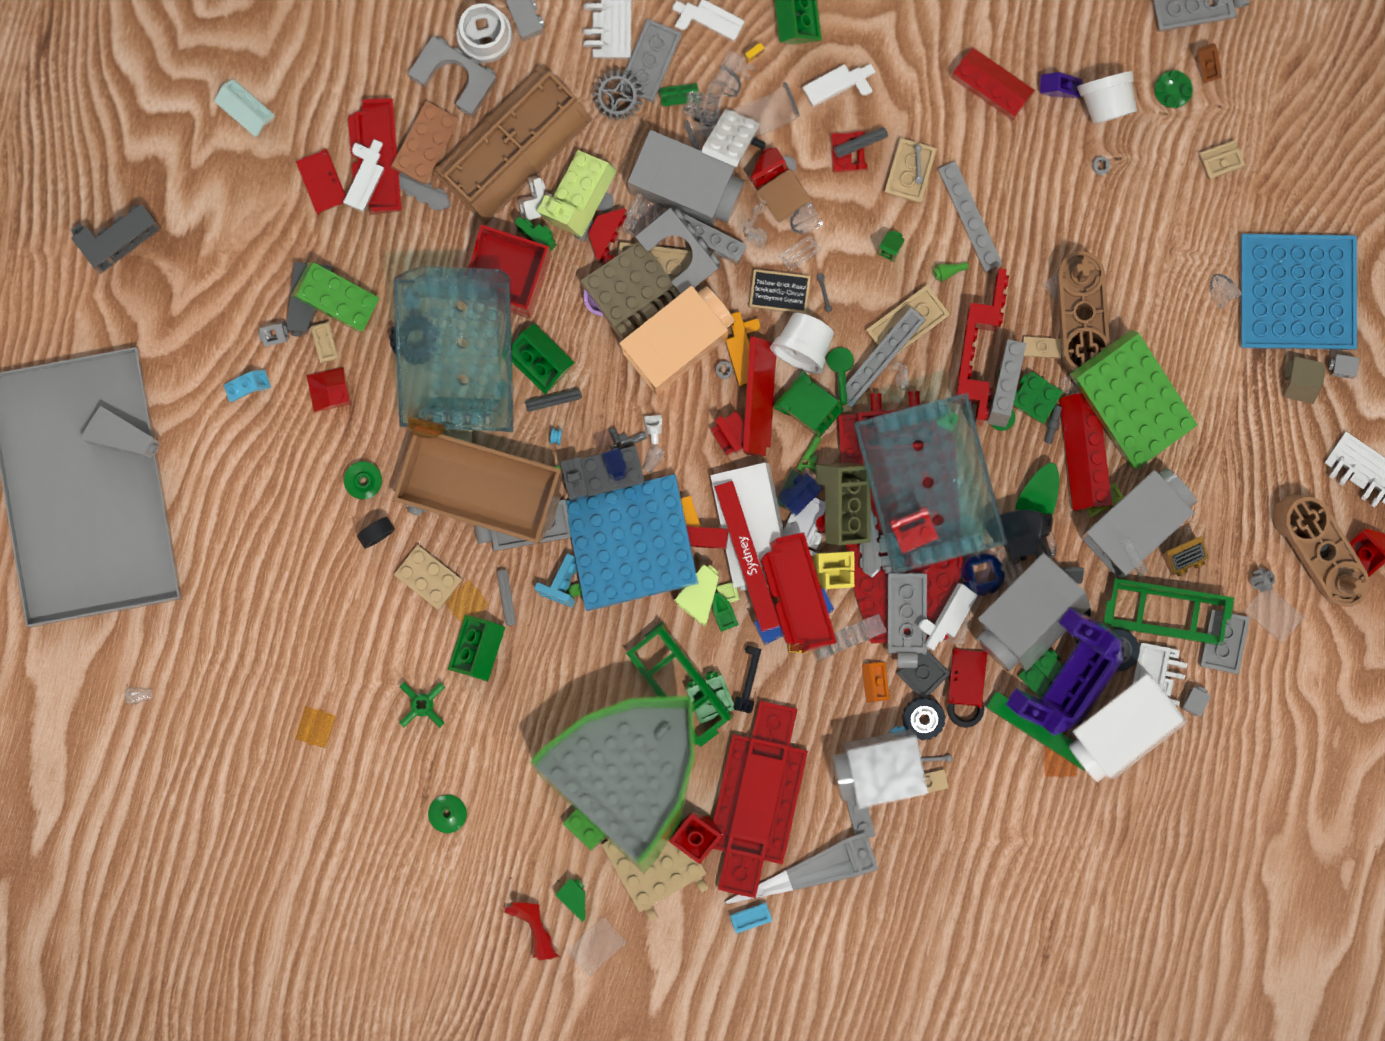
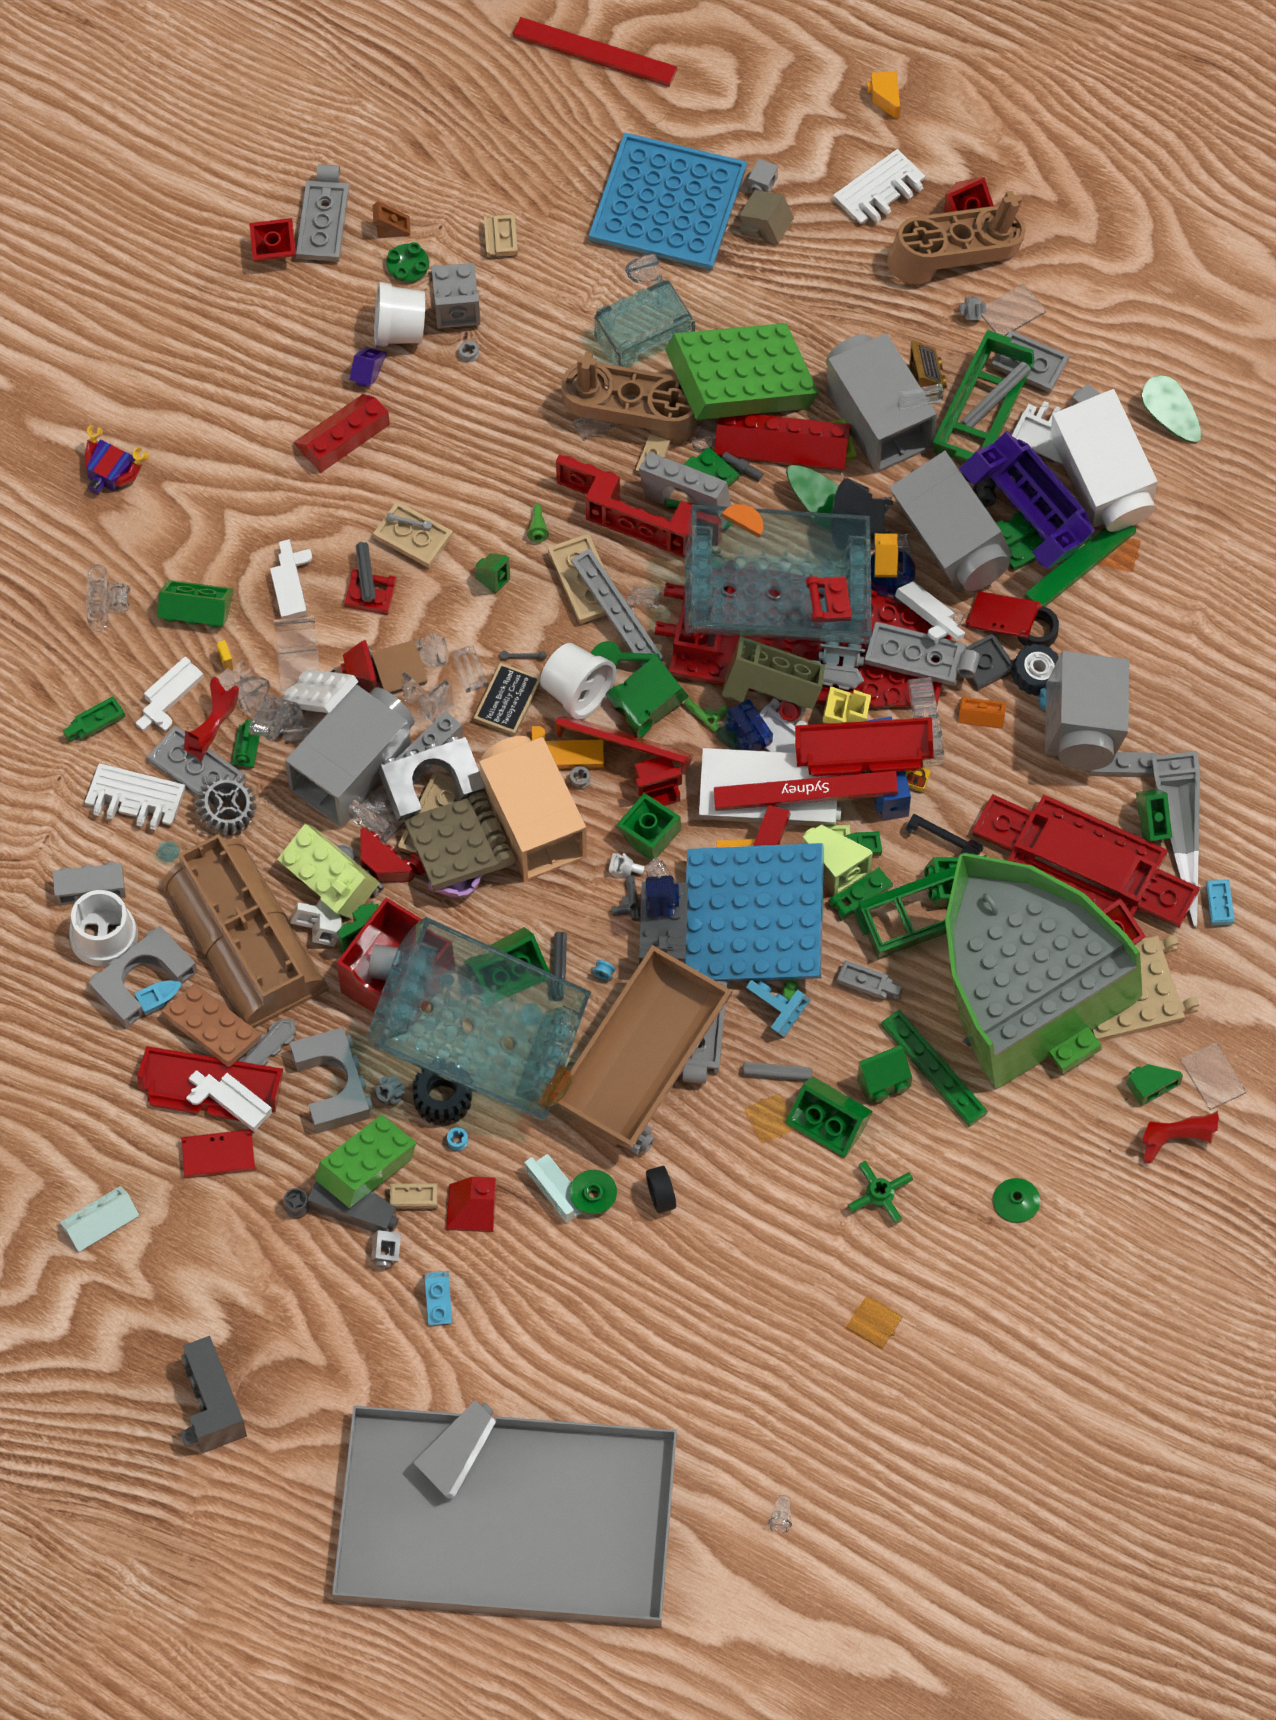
camera: 80 degrees left, 20 degrees down
(291, 251) = (296, 1197): none -> dark grey wheel
(363, 447) = (553, 1185): none -> light aqua panel
(381, 368) = (460, 1132): none -> medium azure bush
(428, 577) = (729, 1150): tan plate -> none
(430, 247) = (334, 1049): none -> light grey arch
(440, 92) = (157, 995): none -> medium azure plate
(504, 260) = (381, 961): none -> light grey piece
(520, 684) = (884, 1074): none -> green slope
(543, 721) = (934, 1068): none -> green tile
(569, 57) = (168, 856): none -> clear light blue plate
(603, 648) = (868, 981): none -> light grey hinge
(682, 624) = (867, 887): none -> green plate
(689, 437) = (649, 826): none -> green slope
(706, 64) = (223, 704): none -> red animal
(811, 845) = (1154, 814): none -> green hinge
(967, 440) = (745, 518): none -> orange tile
(970, 216) = (483, 490): light grey plate -> none
(986, 566) = (886, 555): none -> light orange slope
(1151, 139) = (455, 295): none -> light grey bracket
(1163, 304) = (641, 322): none -> clear light blue windscreen
(1178, 621) = (996, 394): none -> light grey axle
(1210, 772) = (1171, 407): none -> shield

